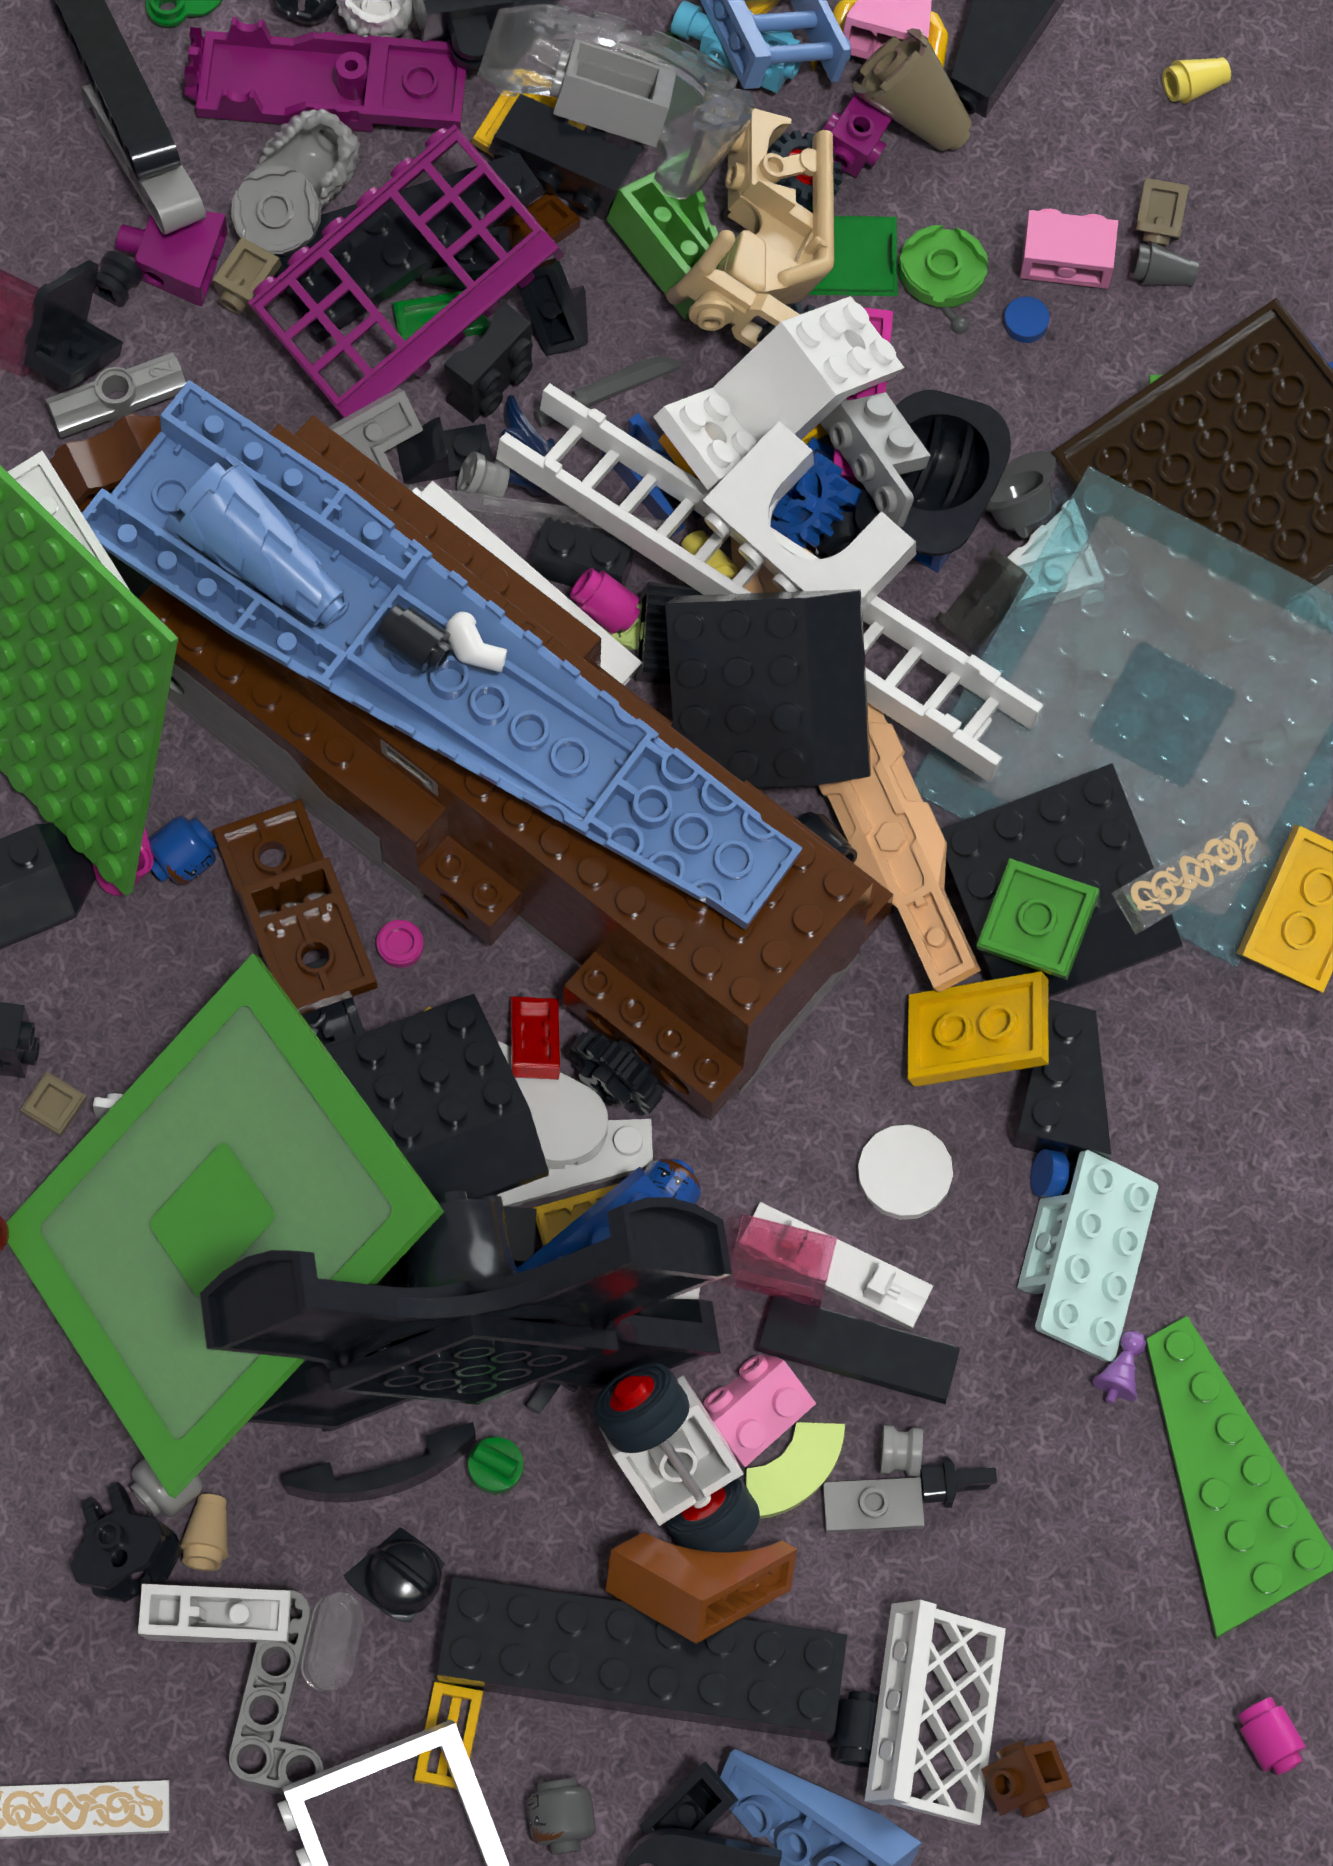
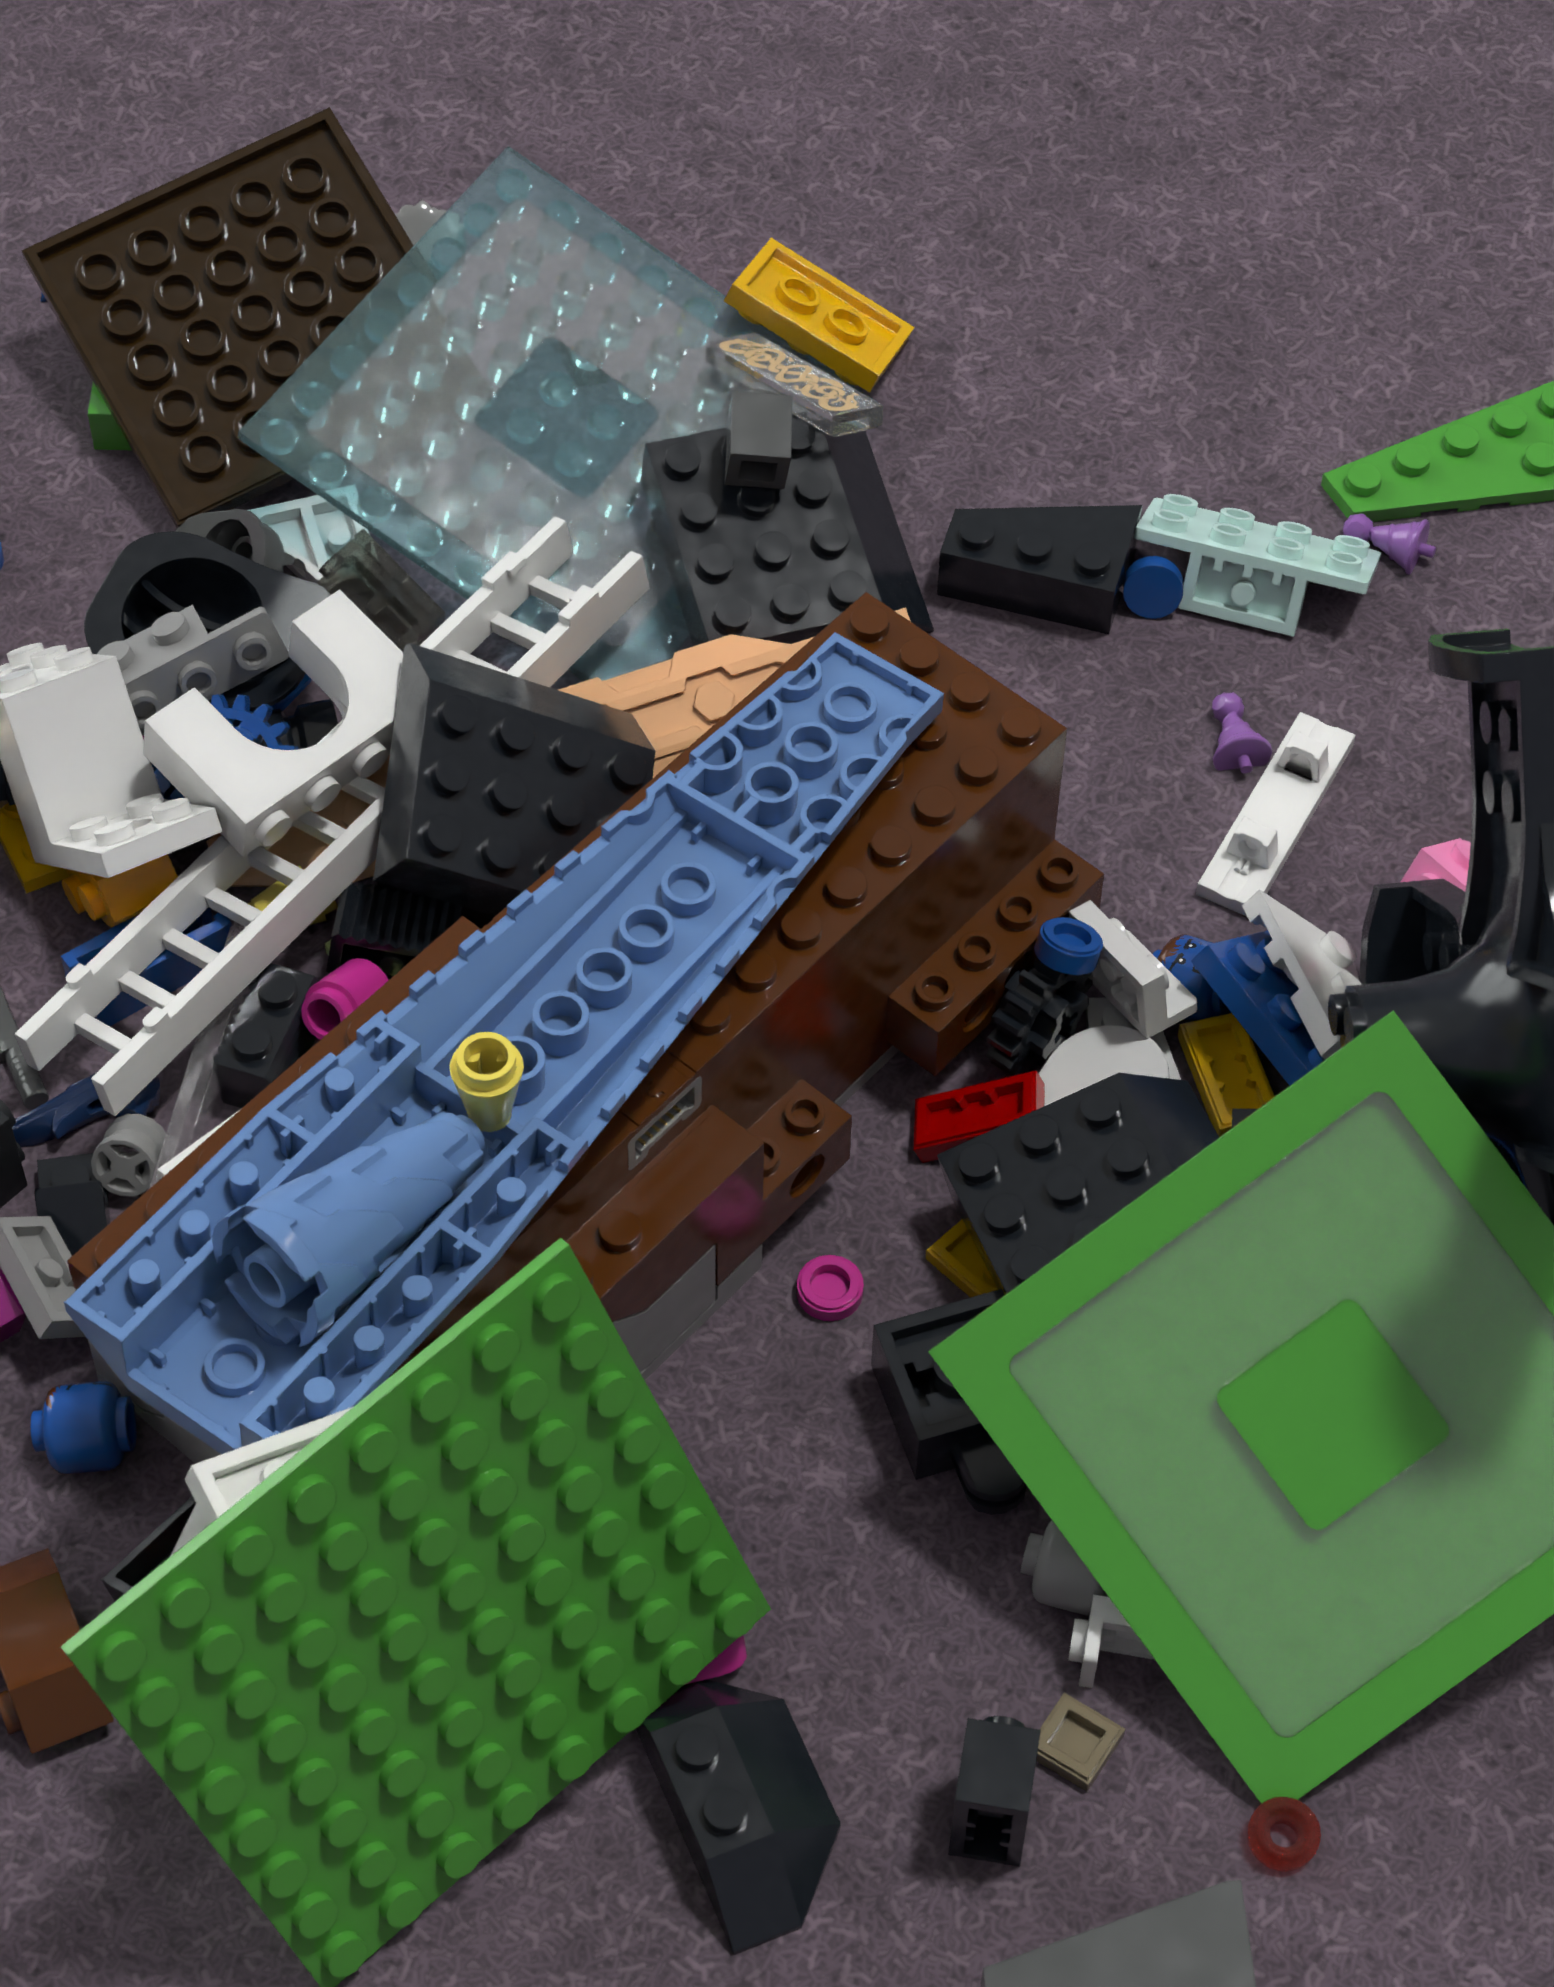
camera: 85 degrees left, 15 degrees down
(295, 907) = (808, 1374): reddish brown bracket -> none
(361, 614) = (487, 1078): none -> light yellow cone
(414, 638) = (530, 1017): black brick -> none
(469, 646) = (523, 975): white arm -> none
(638, 1073) = (1068, 946): none -> blue tile
(645, 1132) = (1134, 977): none -> white bracket
(781, 1260) = (1298, 838): clear pink bracket -> none
(859, 1349) = (1390, 788): black slope -> none
(902, 1238) = (1237, 743): none -> medium lavender piece
(905, 1171) = (1149, 737): white tile -> none
(978, 1029) = (982, 604): yellow plate -> none
(1038, 919) = (847, 533): bright green tile -> none
(1105, 838) = (758, 439): none -> dark grey brick

